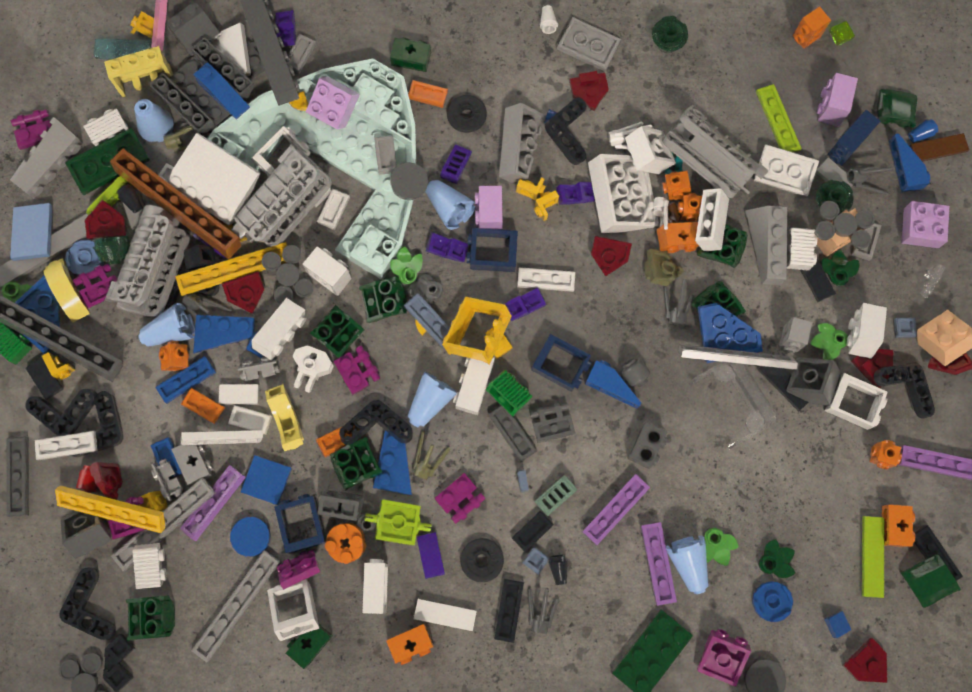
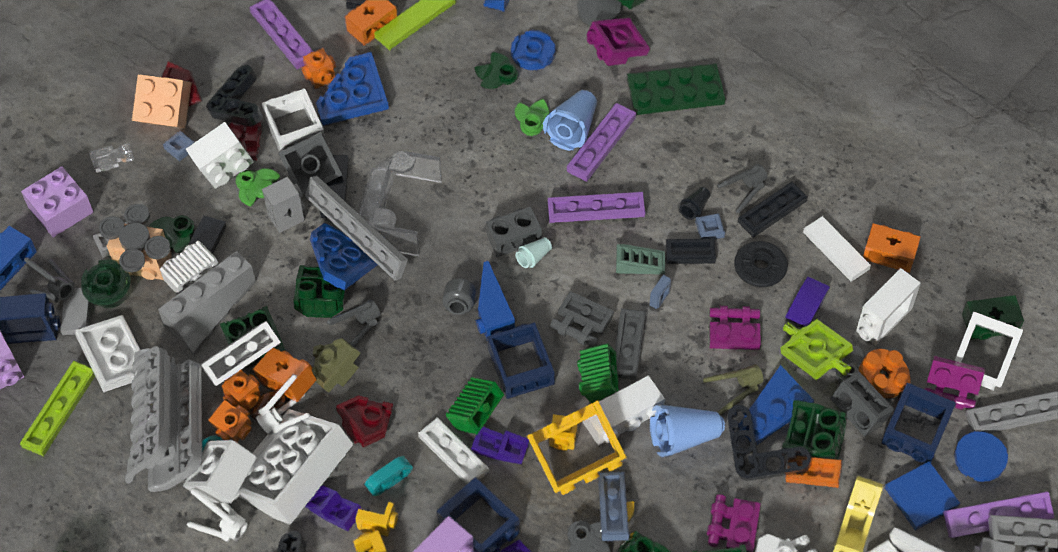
camera: 135 degrees left, 20 degrees down
(558, 311) = (474, 405): none -> green brick
(565, 233) = (388, 476): none -> teal beam
(622, 443) = (532, 253): none -> light aqua cone
(847, 460) = (353, 92): none -> blue plate

